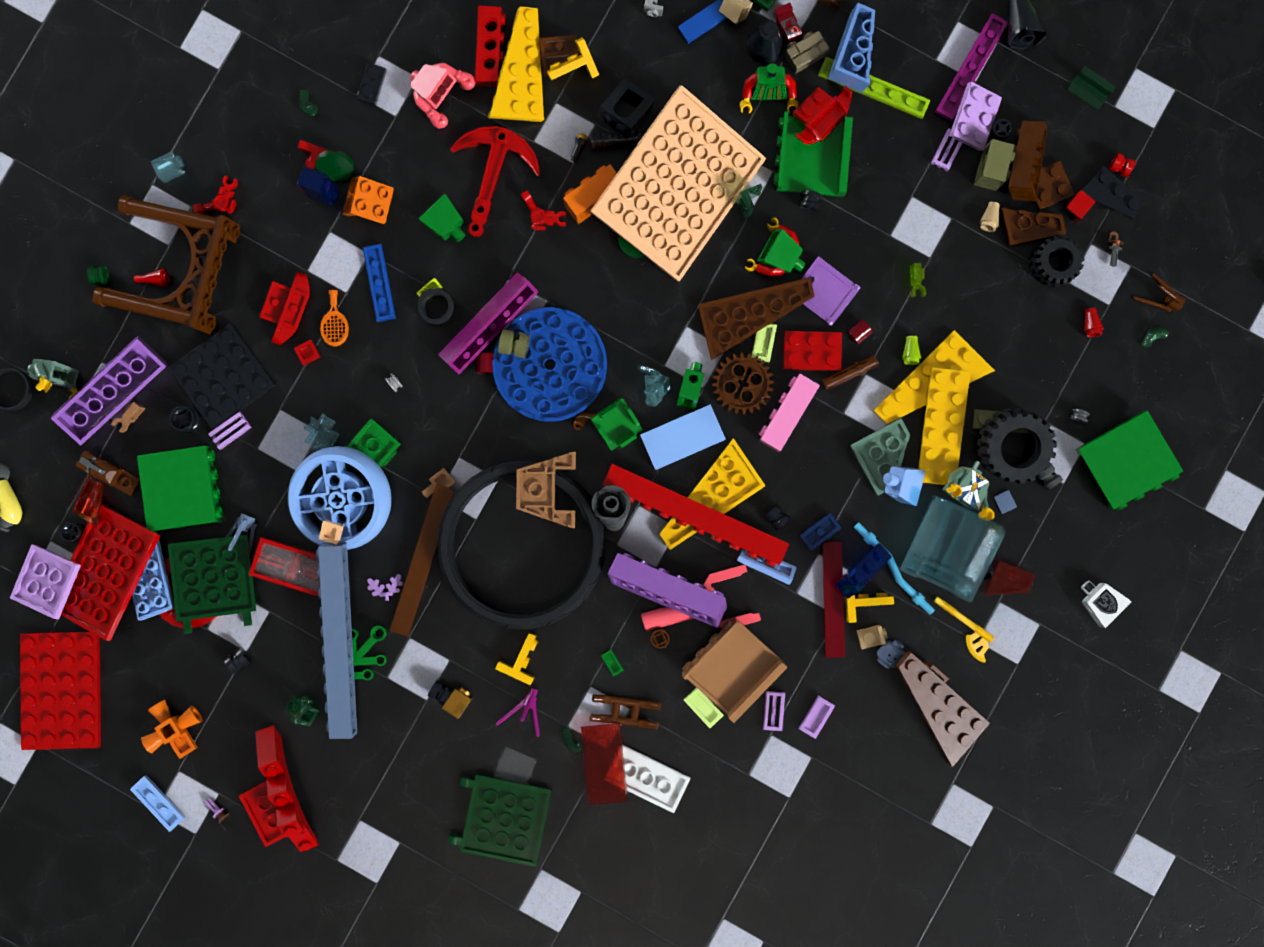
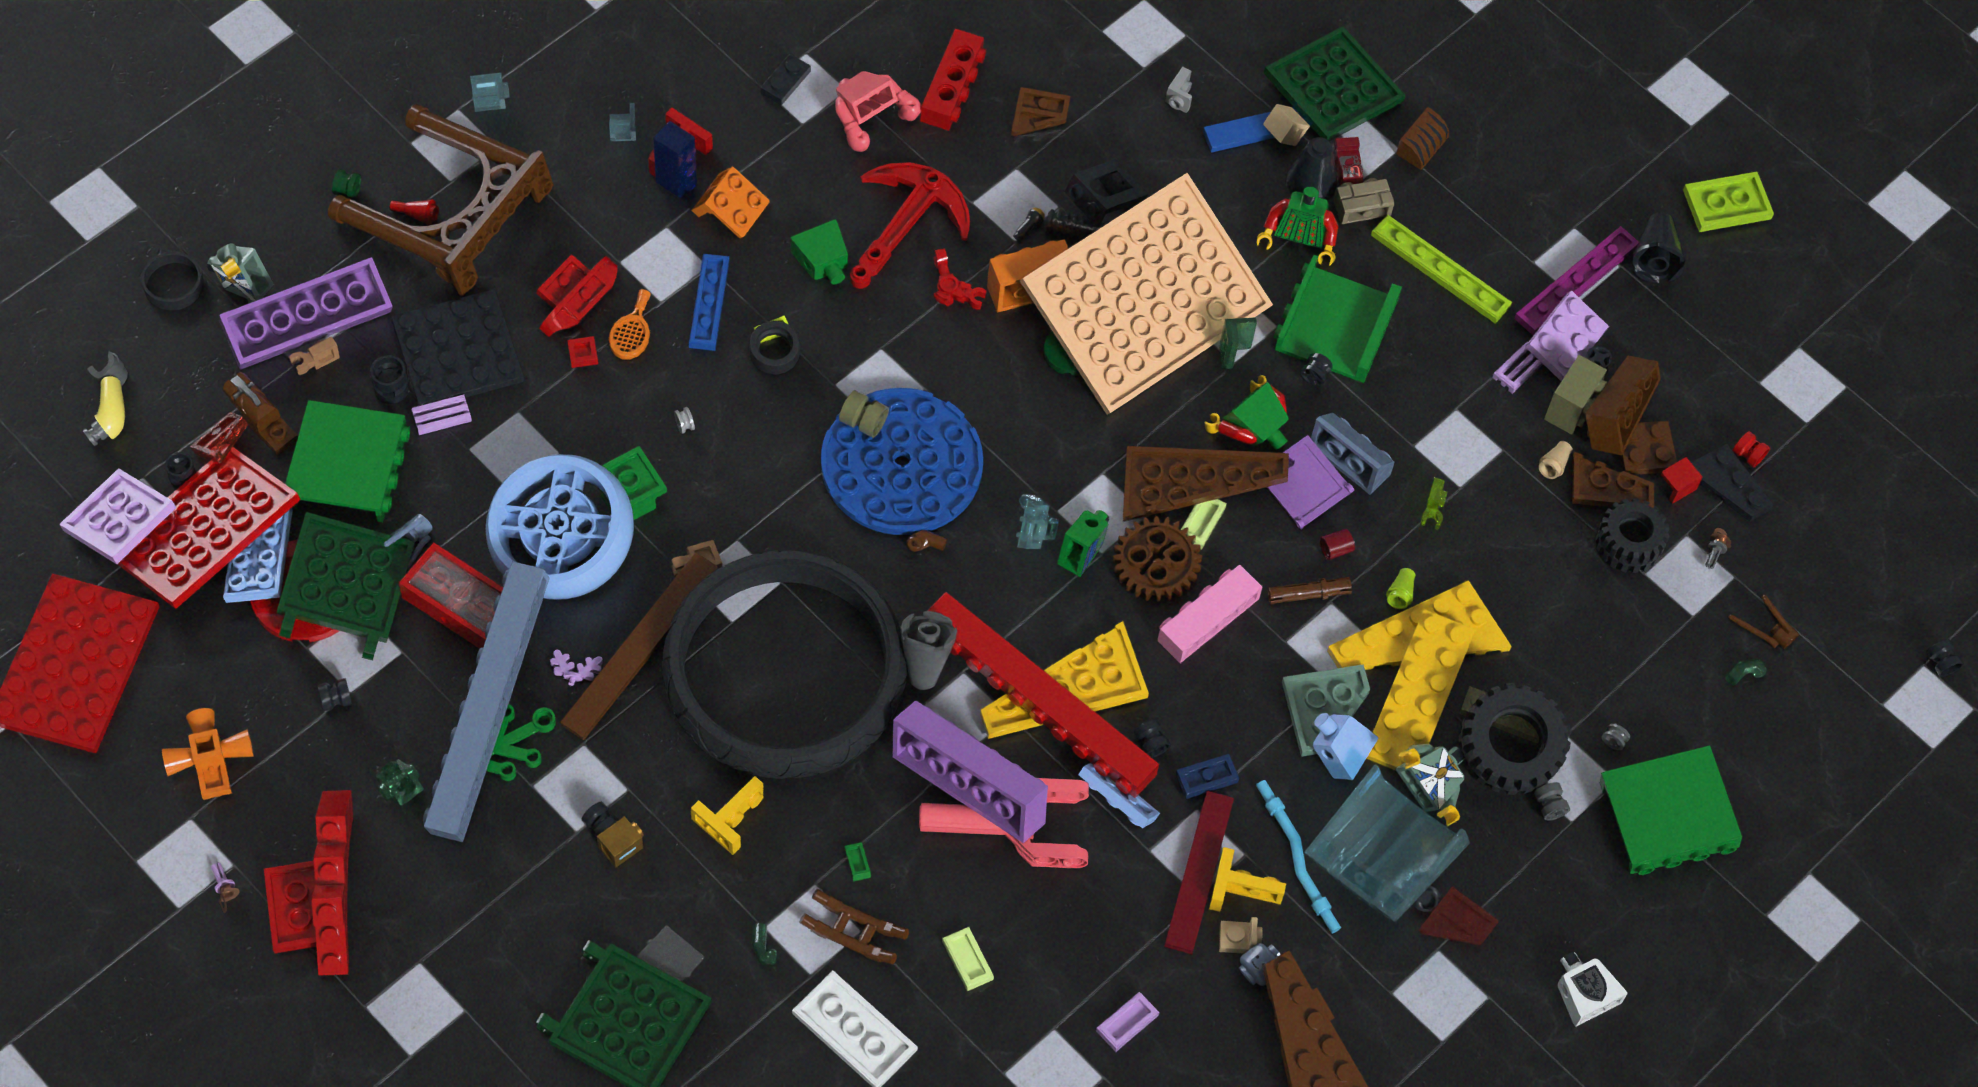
camera: 10 degrees right, 25 degrees down
(157, 803) = (145, 846): light blue plate -> none
(221, 201) = (547, 144): red piece -> none
(271, 162) = (623, 126): none -> clear light blue panel
(305, 105) = (692, 78): clear green arm -> none
(325, 433) = (560, 438): clear light blue piece -> none
(331, 532) = (535, 552): light nougat plate -> none
(336, 165) = (711, 148): dark green tile -> none
(484, 363) = (814, 433): dark red beam -> none
(488, 323) = (836, 384): magenta brick -> none
(520, 79) = (980, 124): yellow wing -> none
(529, 703) = (720, 876): magenta plant -> none
(537, 489) = (834, 586): medium nougat wing -> none
(574, 62) = (1057, 123): yellow bracket -> none
(604, 764) = (799, 986): clear red plate -> none
(617, 424) = (968, 556): green panel -> none
(659, 638) = (936, 850): reddish brown wheel -> none
(682, 437) = (1053, 601): light blue tile -> none
(734, 669) = (1027, 909): medium nougat panel -> none
(781, 710) = (1060, 1016): lavender tile -> none
(812, 351) = (1265, 550): red plate -> none
(821, 114) = (1362, 275): red plate -> none
(852, 258) = (1351, 452): none -> sand blue slope
(853, 55) = (1423, 216): medium blue wedge -> none
(863, 570) = (1252, 833): clear blue brick -> none
(978, 631) = (1396, 977): yellow piece -> none
(1005, 501) = (1481, 819): sand blue piece -> none
(1091, 88) = (1732, 349): clear green panel -> none
(1093, 325) = (1663, 630): red cone -> none

